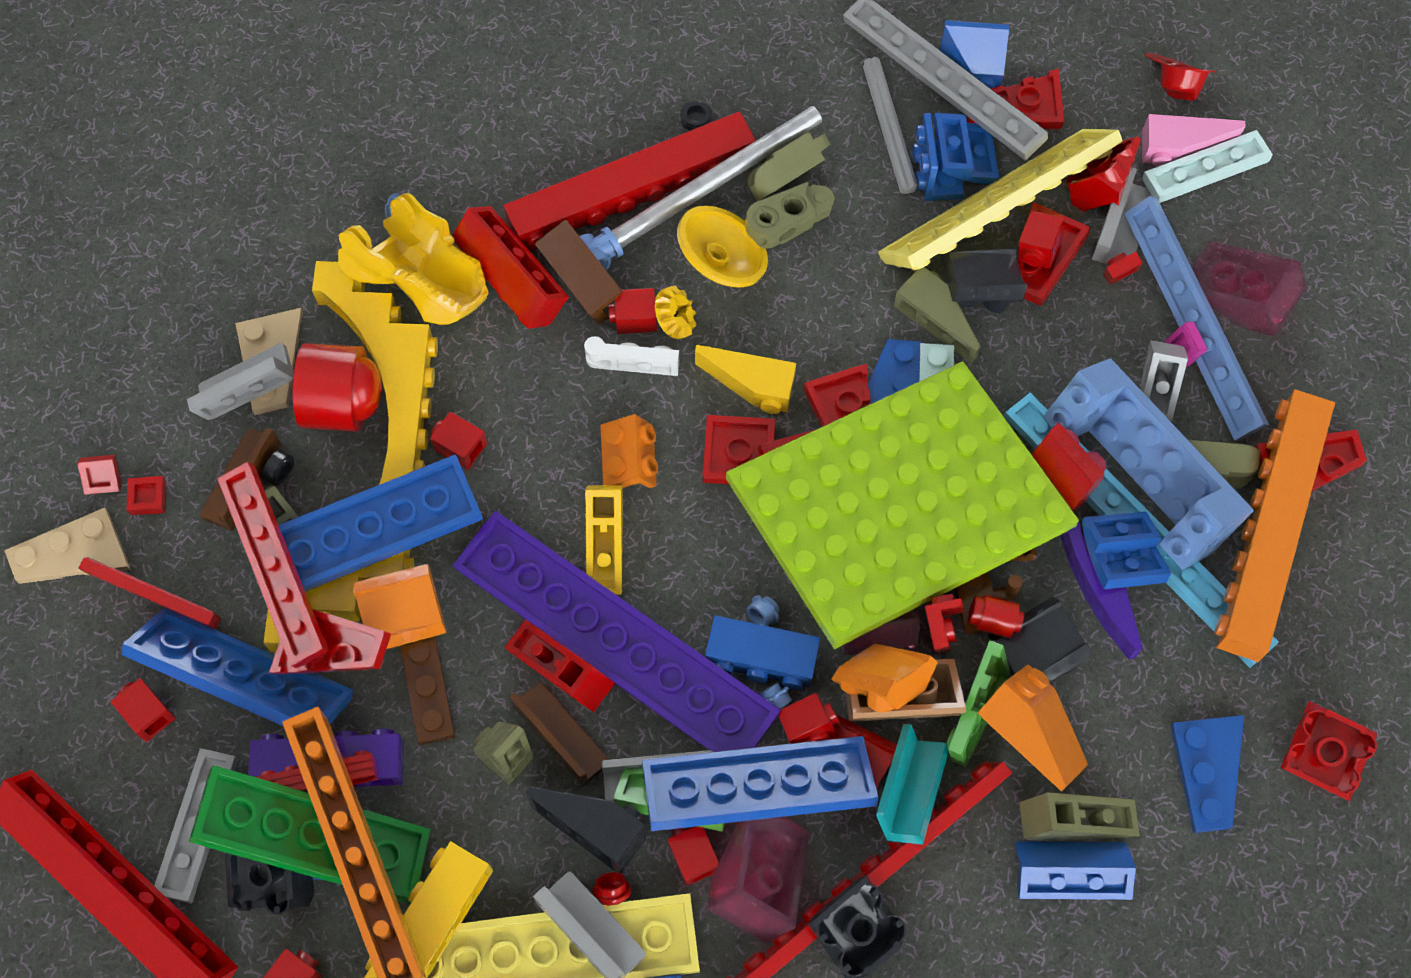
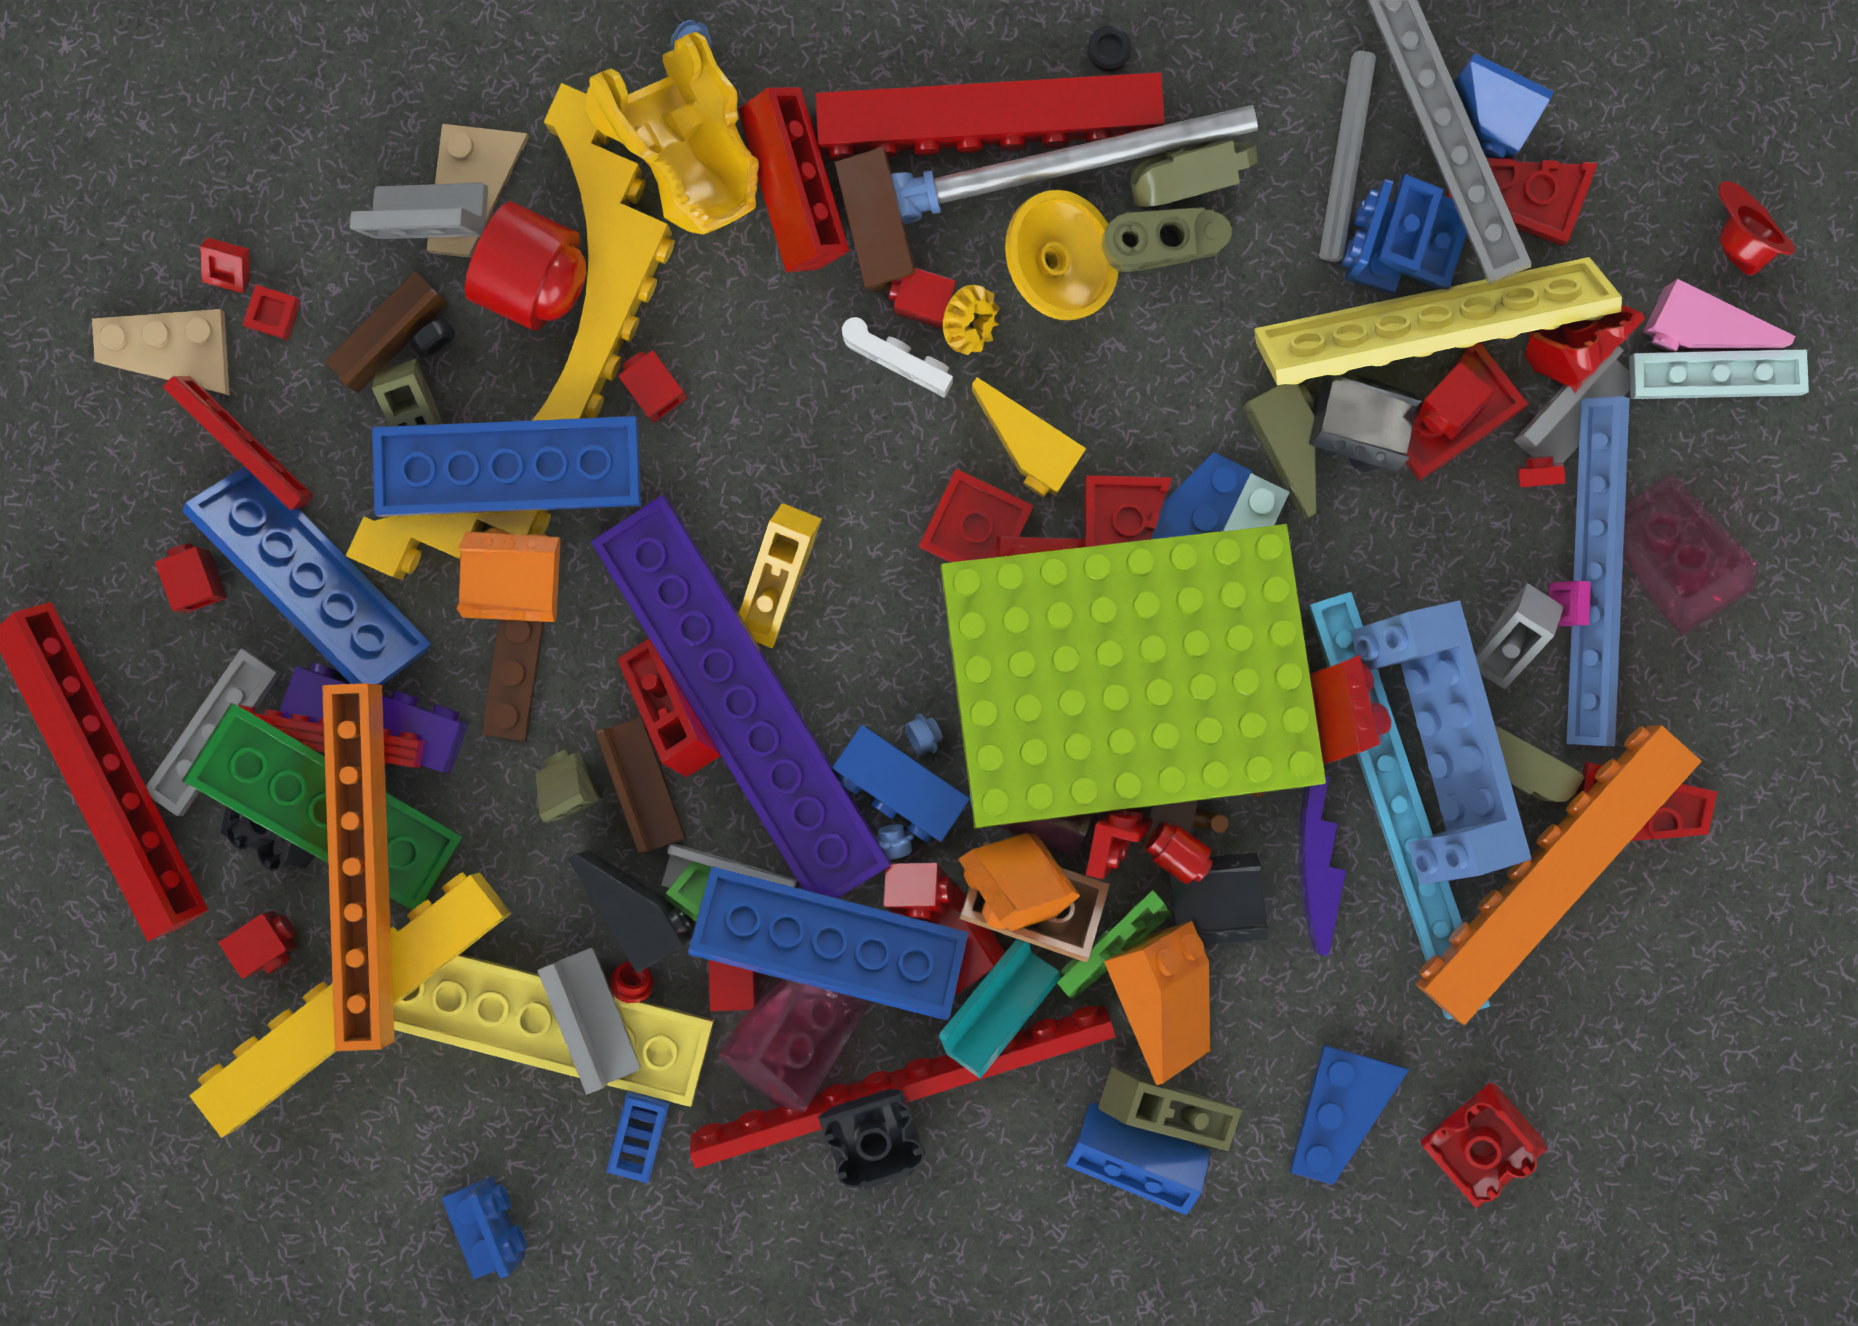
camera: 30 degrees right, 20 degrees up
(272, 565) = (377, 477): plate -> none
(349, 646) = (410, 590): wing -> none
(628, 452) = (846, 479): orange bracket -> none
(1125, 550) = (1364, 835): blue slope -> none

